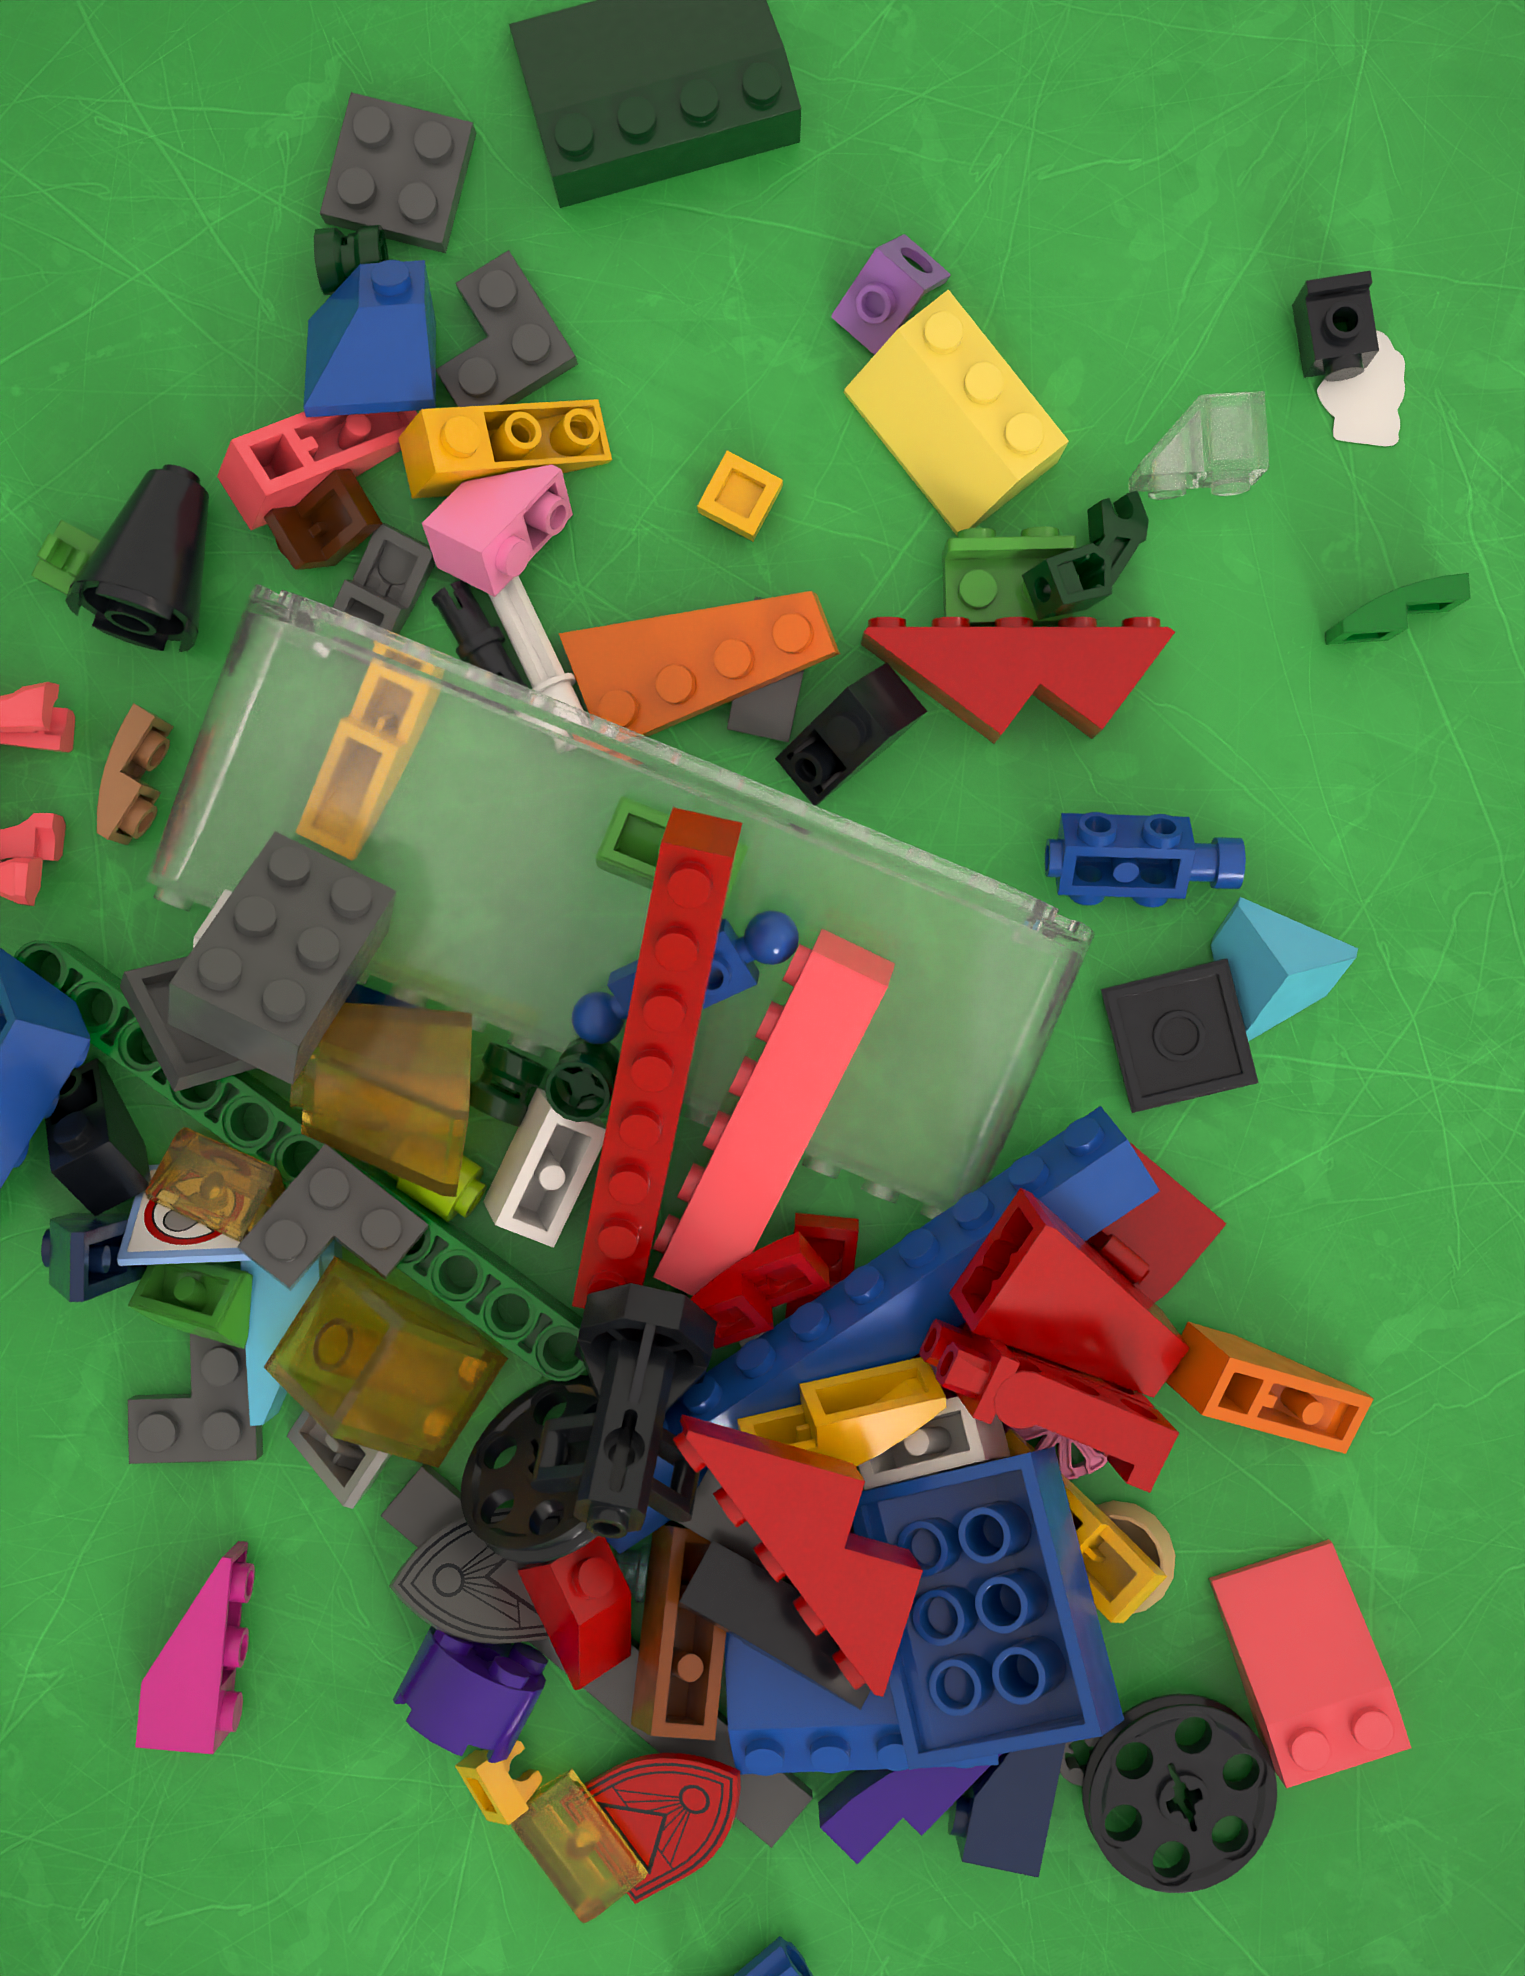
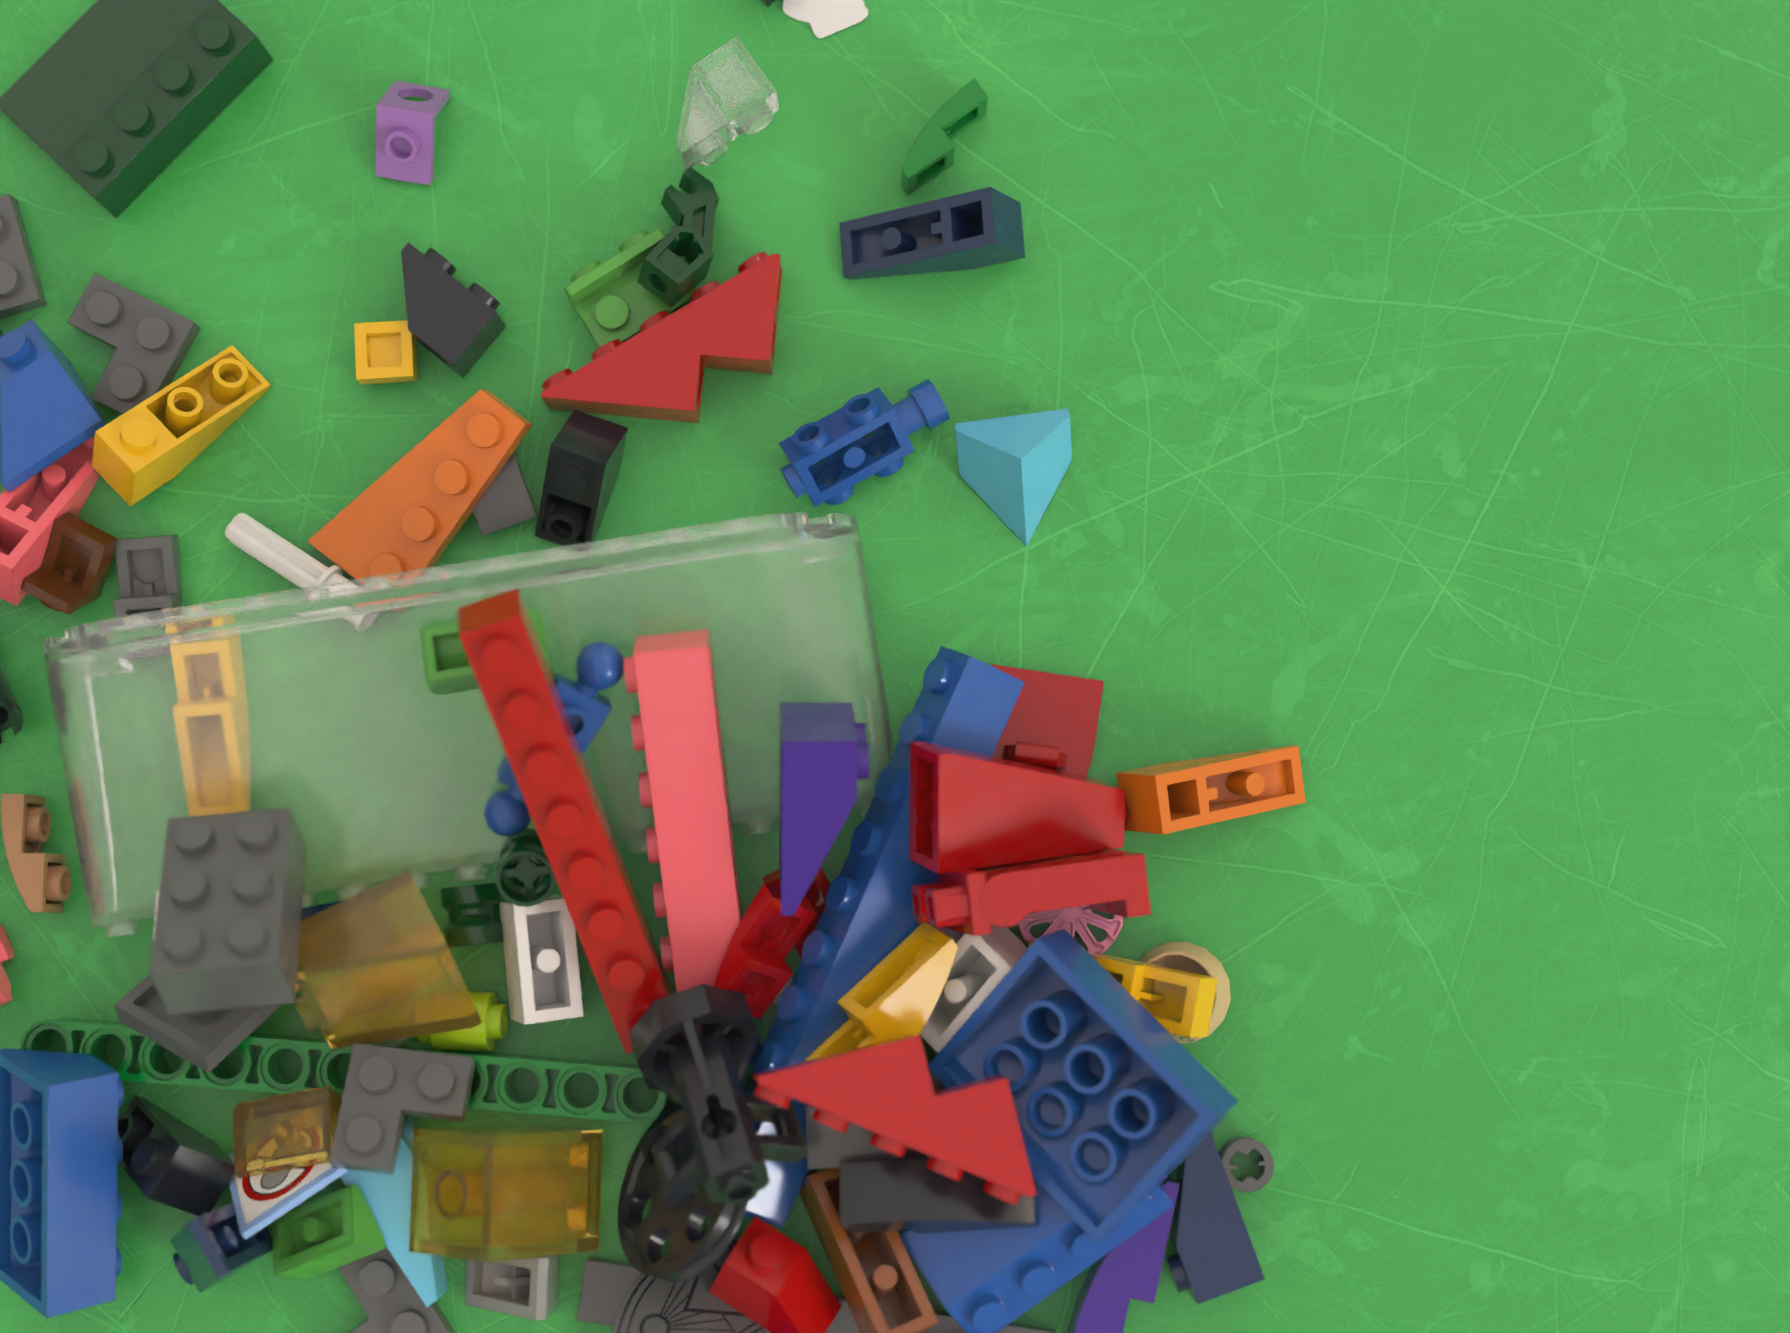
camera: 30 degrees left, 5 degrees down
(476, 638) = (233, 575): black pin -> none
(497, 525) = (208, 486): bright pink slope -> none
(634, 1568) = (805, 1235): clear light blue bush -> none
(818, 493) = (444, 314): none -> black slope
(902, 1181) = (819, 772): none -> dark purple slope
(955, 414) = (515, 192): light yellow slope -> none
(1179, 1035) = (975, 558): black plate -> none
(1206, 1795) = (1365, 1140): black wedge -> none
(1308, 1664) = (1374, 982): coral slope -> none
(1330, 702) = (934, 236): none -> dark blue slope

